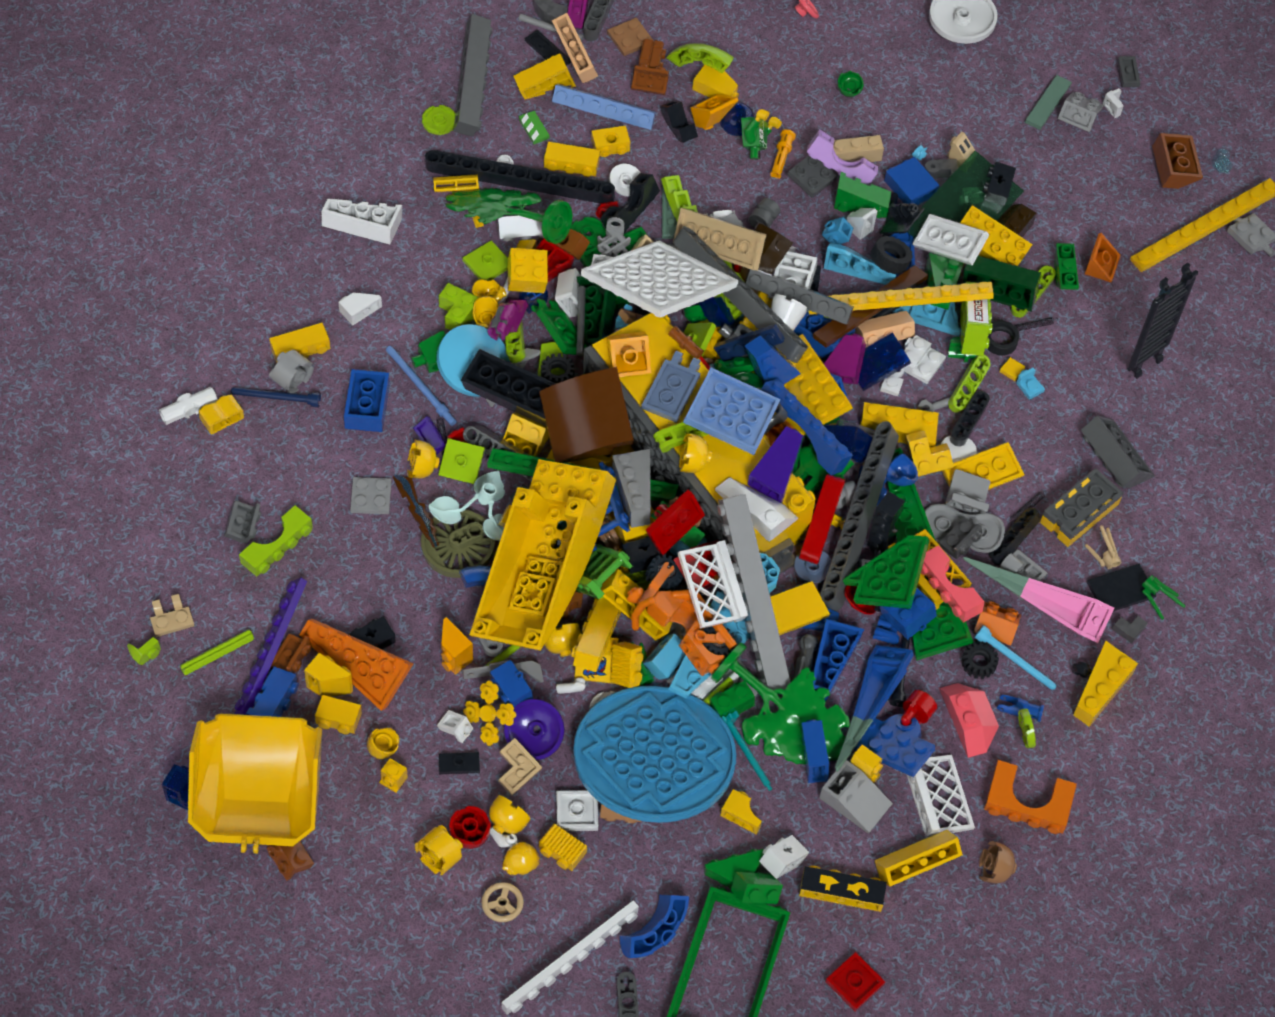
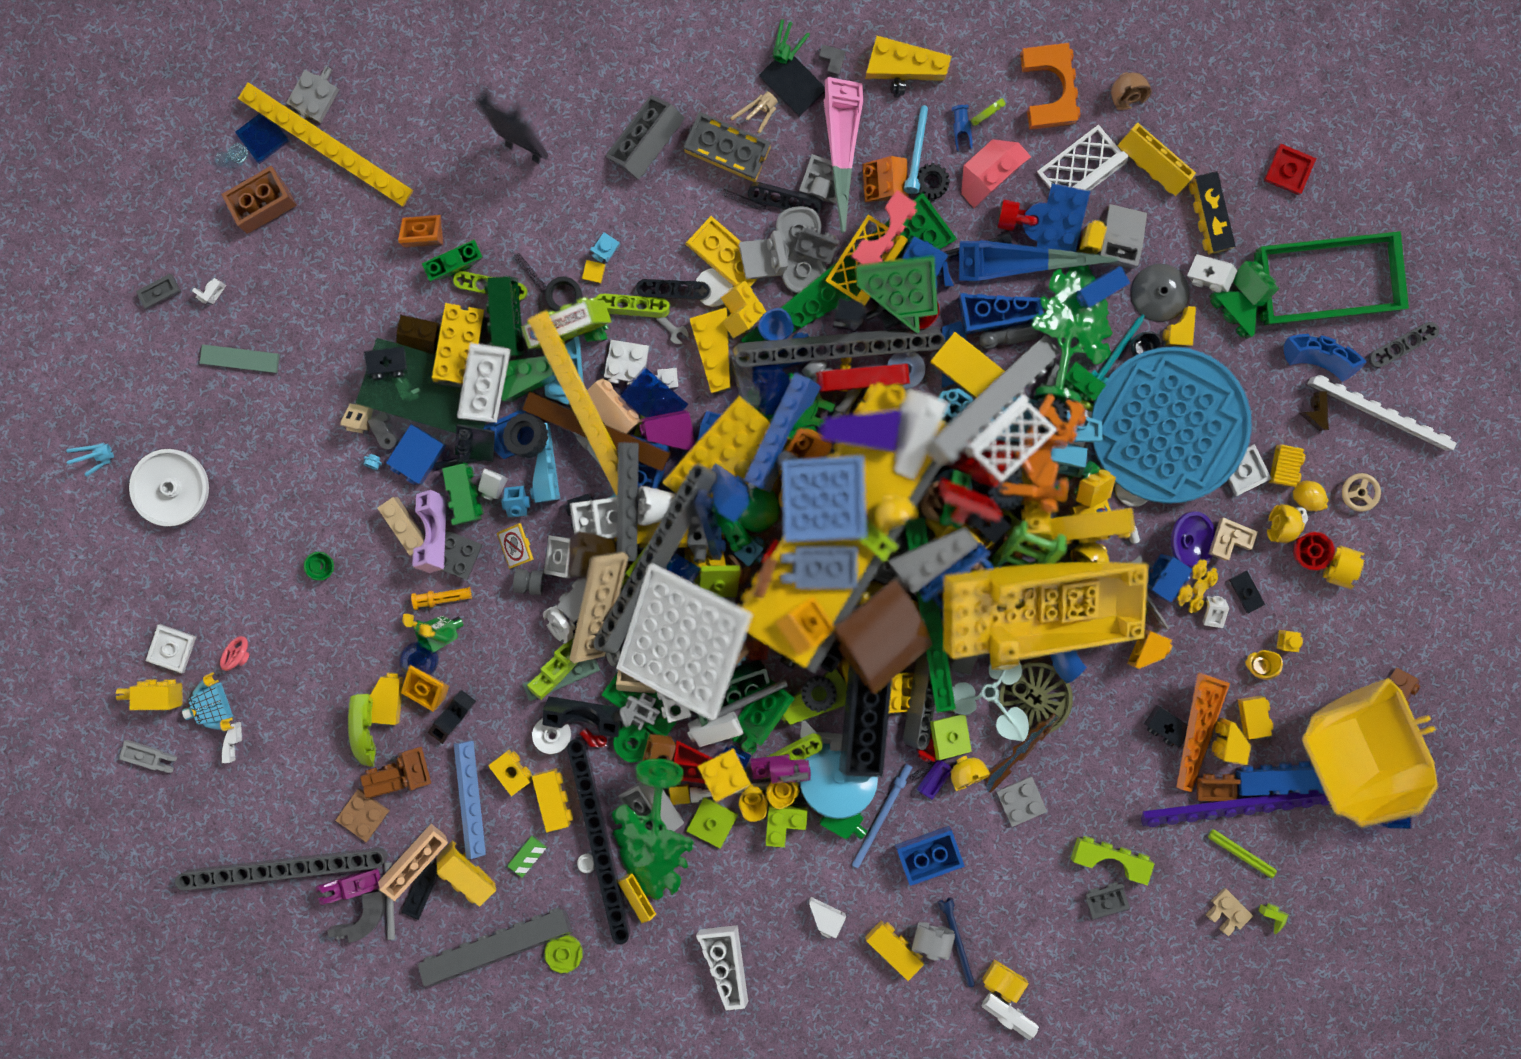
camera: 110 degrees left, 30 degrees up
(596, 898) = (1319, 416): none -> dark brown slope
(743, 767) = (1149, 339): none -> black hair
(782, 823) = (1148, 297): none -> dark grey dish
(799, 218) = (515, 545): none -> piece
(1080, 111) = (235, 321): light grey bracket -> none
(1229, 185) = (262, 137): none -> clear blue tile

